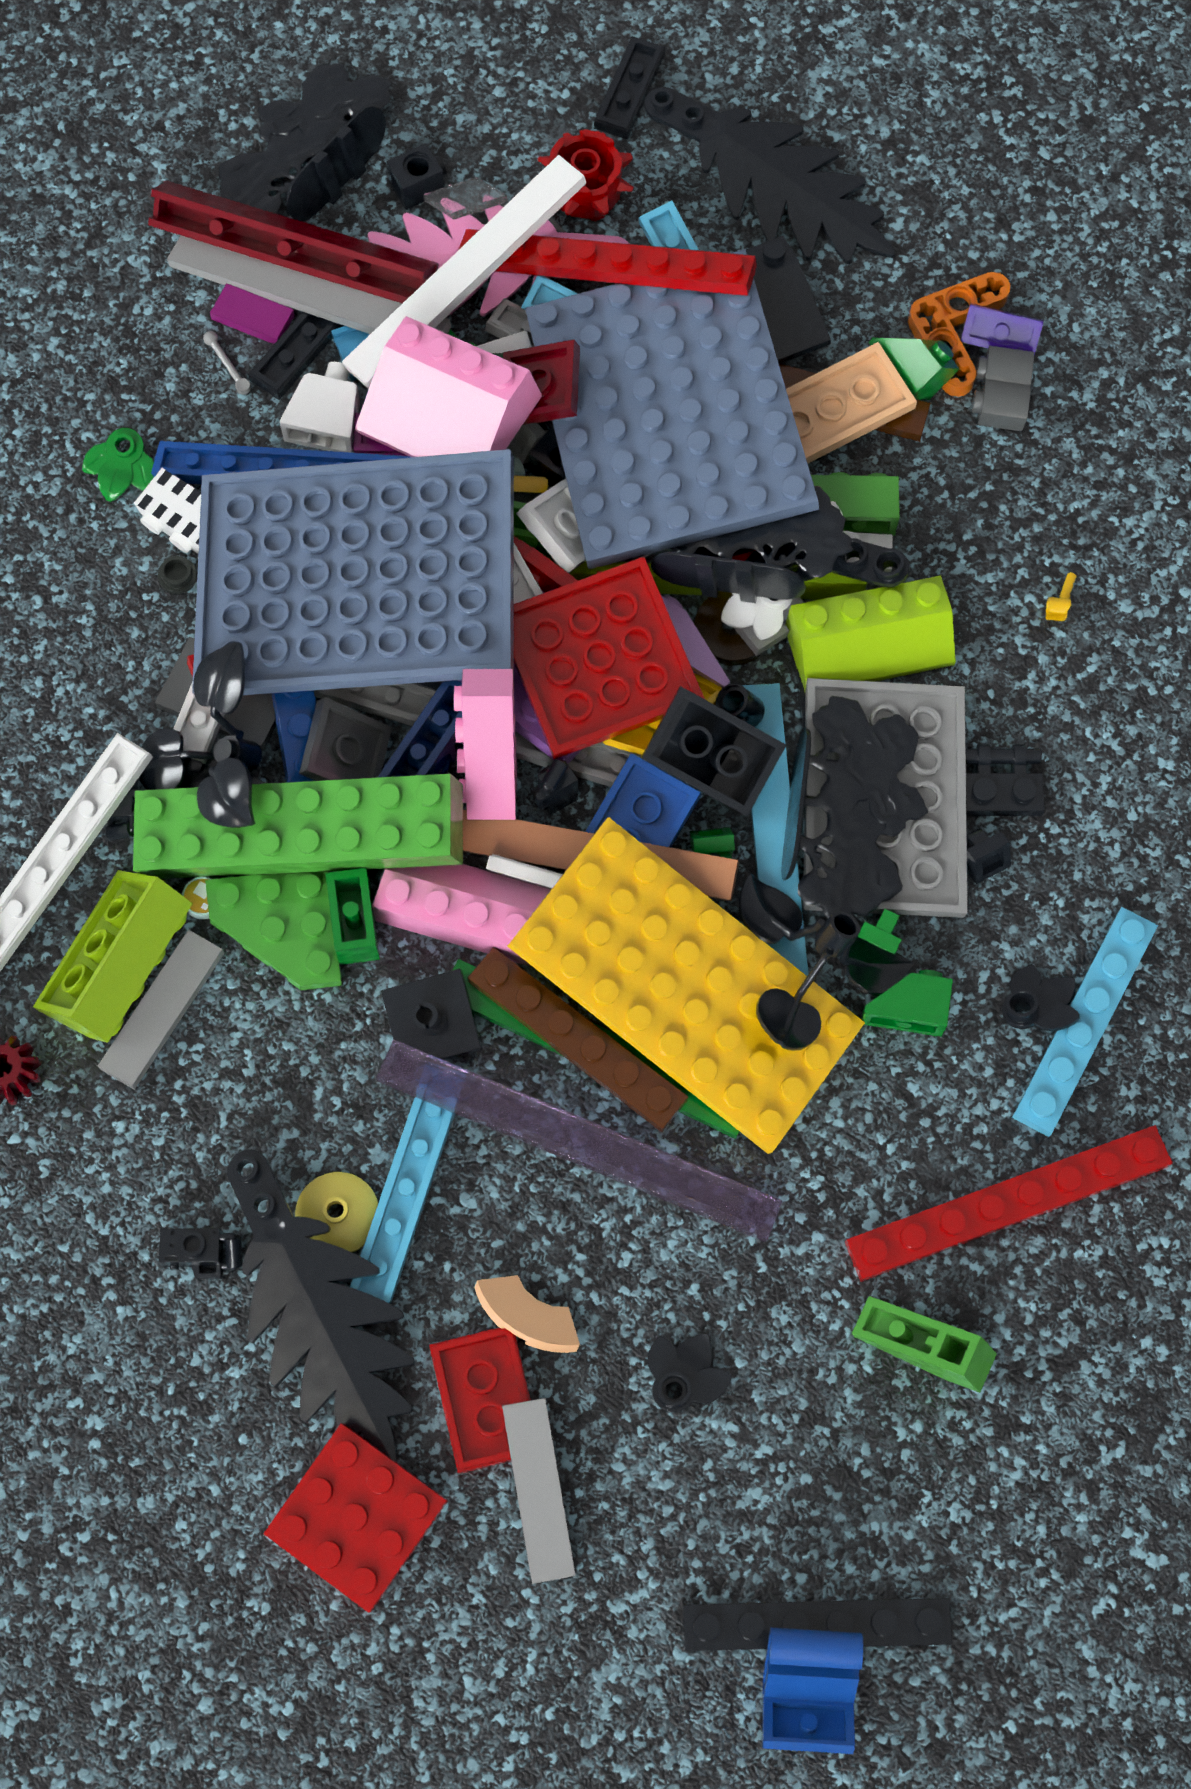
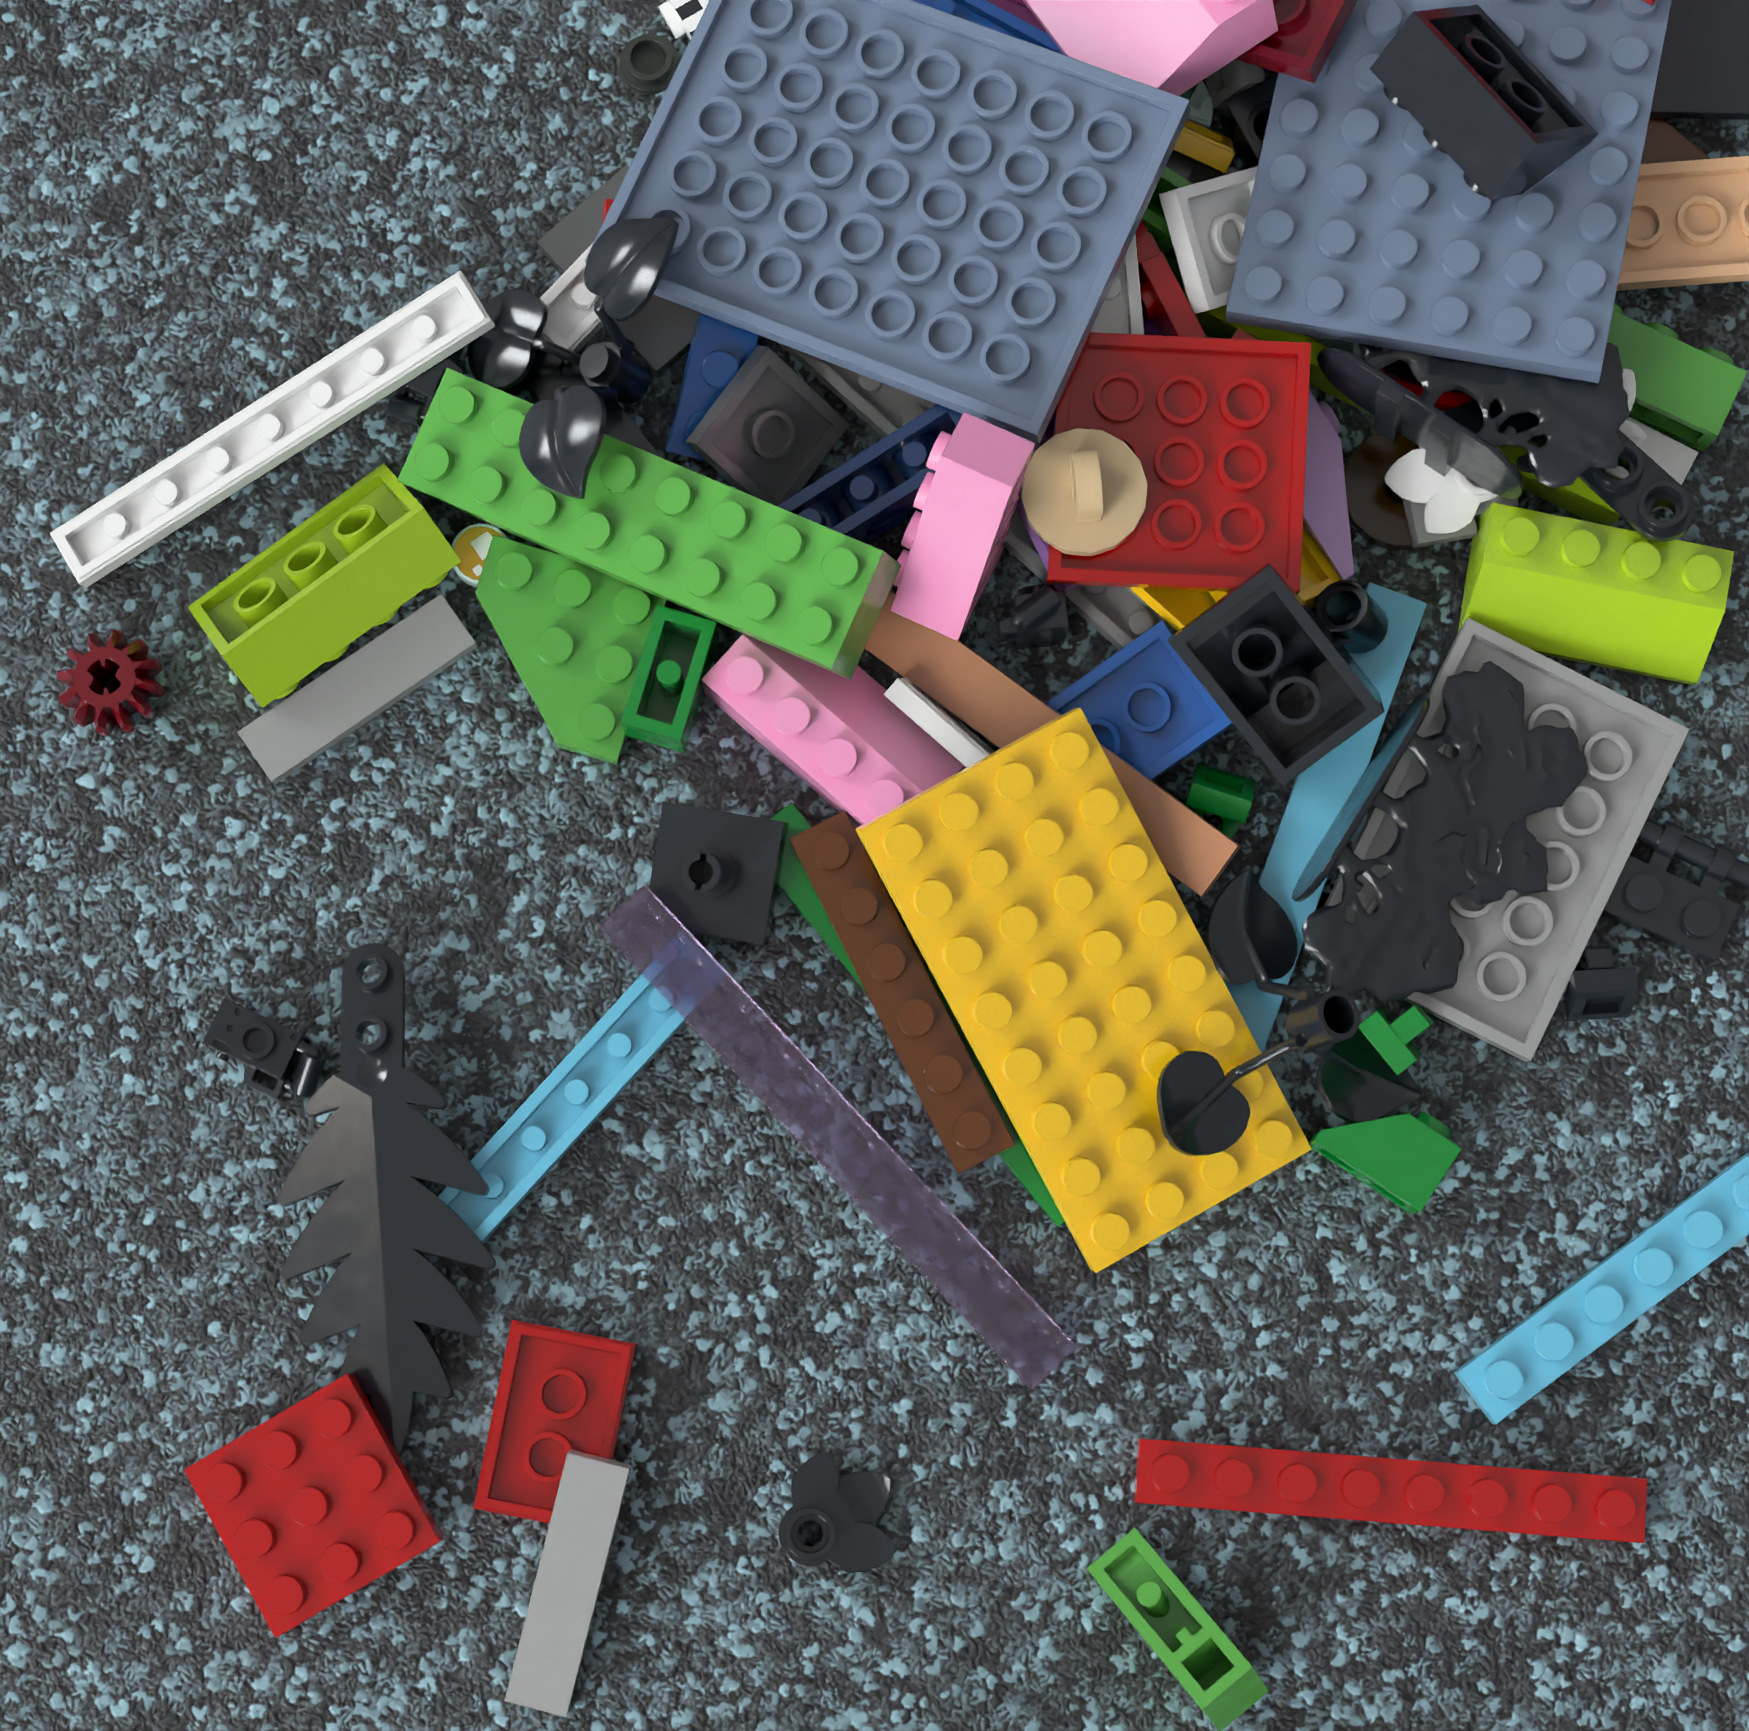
camera: 25 degrees right, 10 degrees up
(355, 1196) = (502, 1070): light yellow dish -> none
(525, 1316) = (657, 1344): light nougat tile -> none
(552, 694) = (1084, 492): none -> tan tile
(676, 384) = (1480, 100): none -> black slope
(1045, 999) = (1581, 1231): black plate -> none

